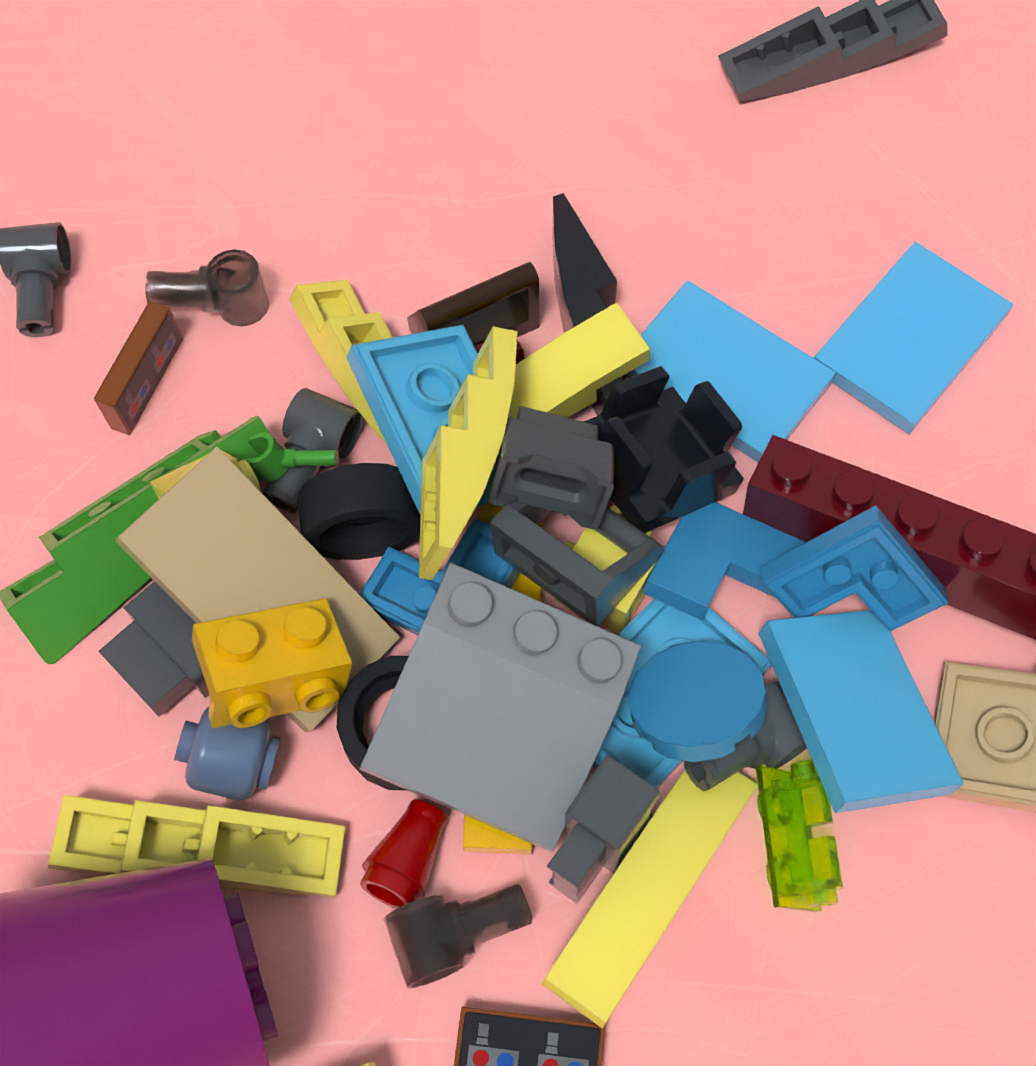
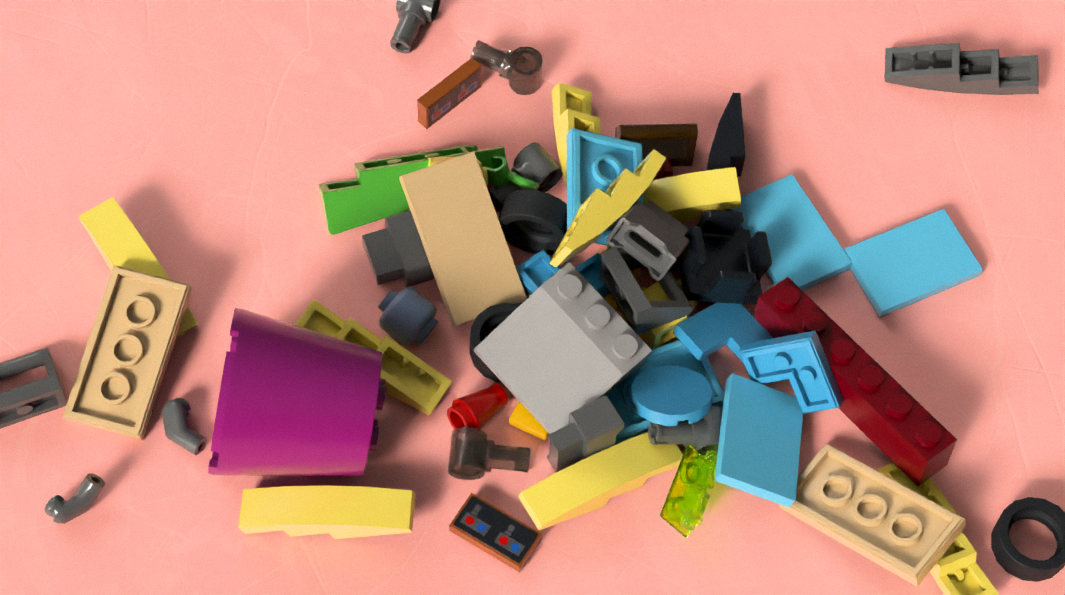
camera: 20 degrees right, 5 degrees down
(272, 663) = (452, 277): yellow bracket -> none

